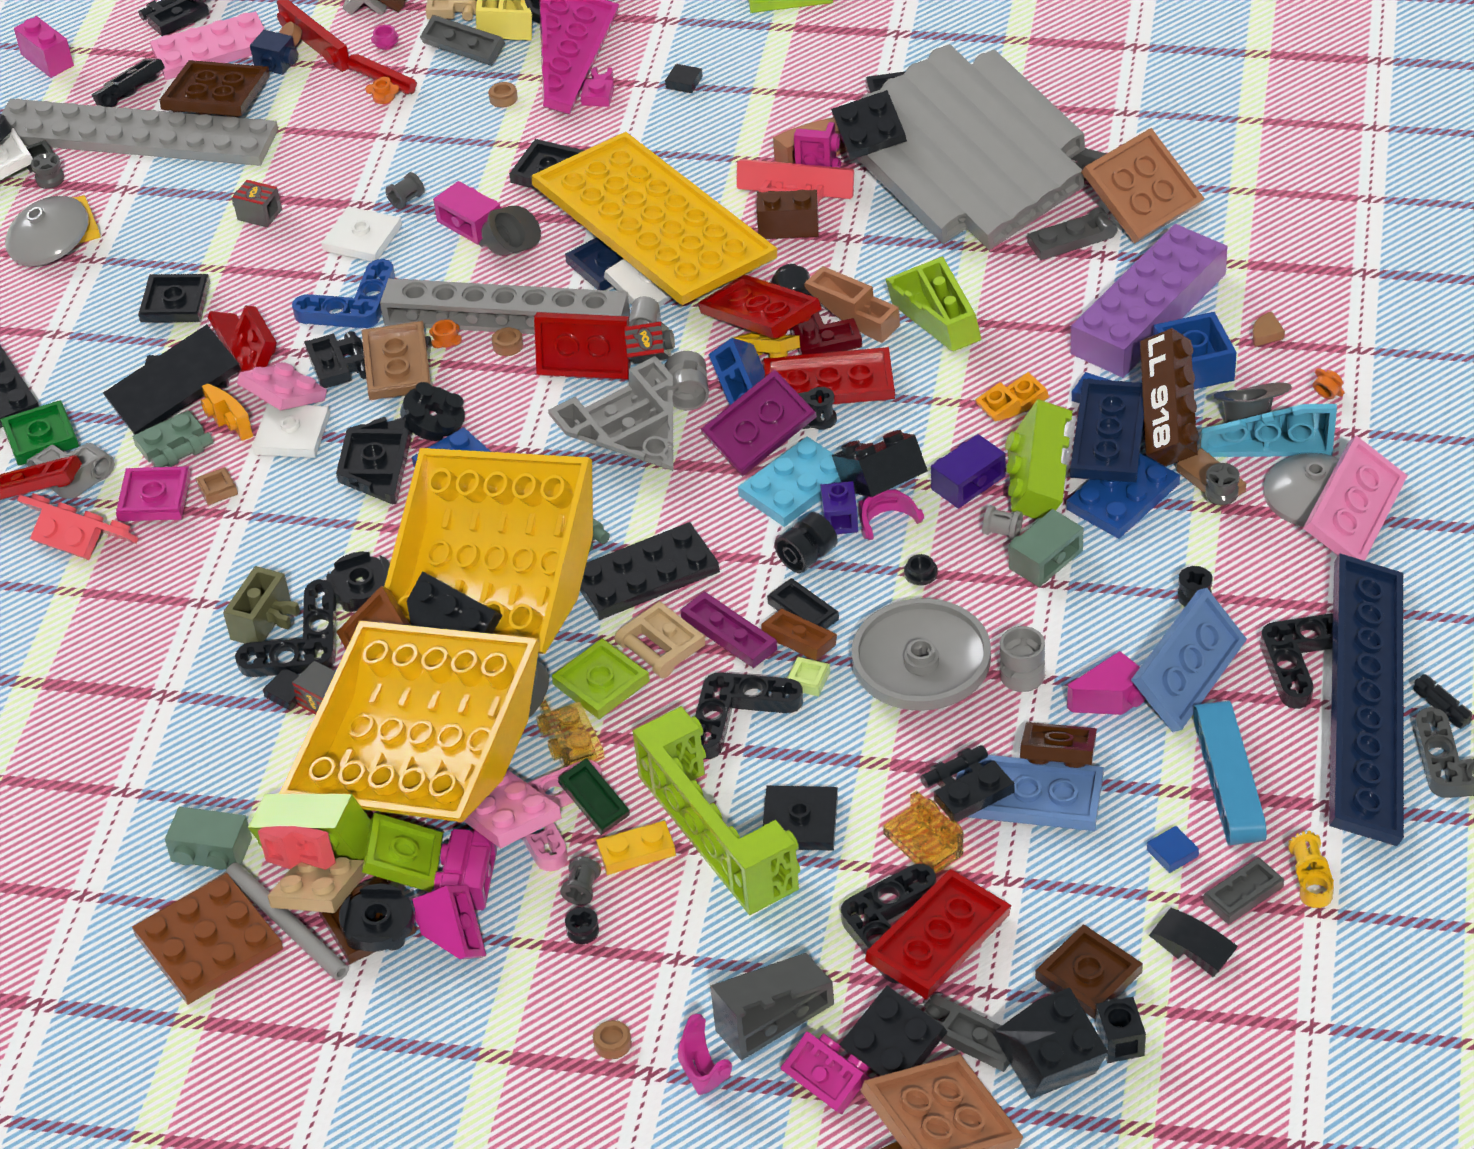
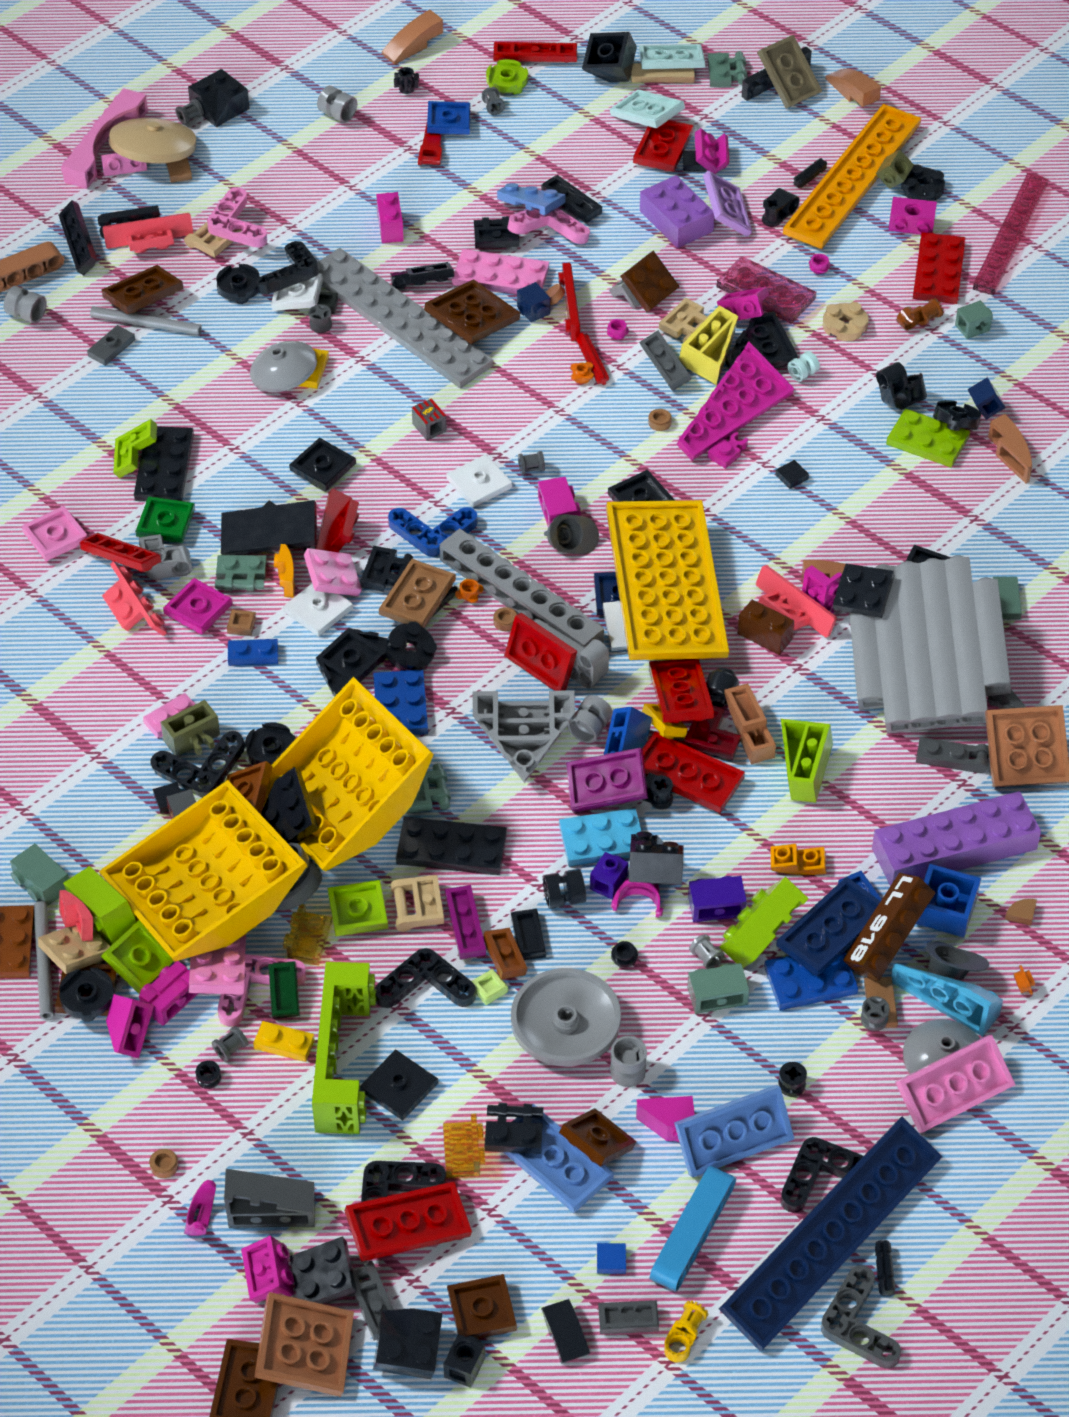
camera: 30 degrees right, 5 degrees up
(209, 619) = (154, 719): none -> bright pink plate
(255, 506) = (252, 652): none -> blue plate
(649, 341) = (578, 677): dark grey brick -> none

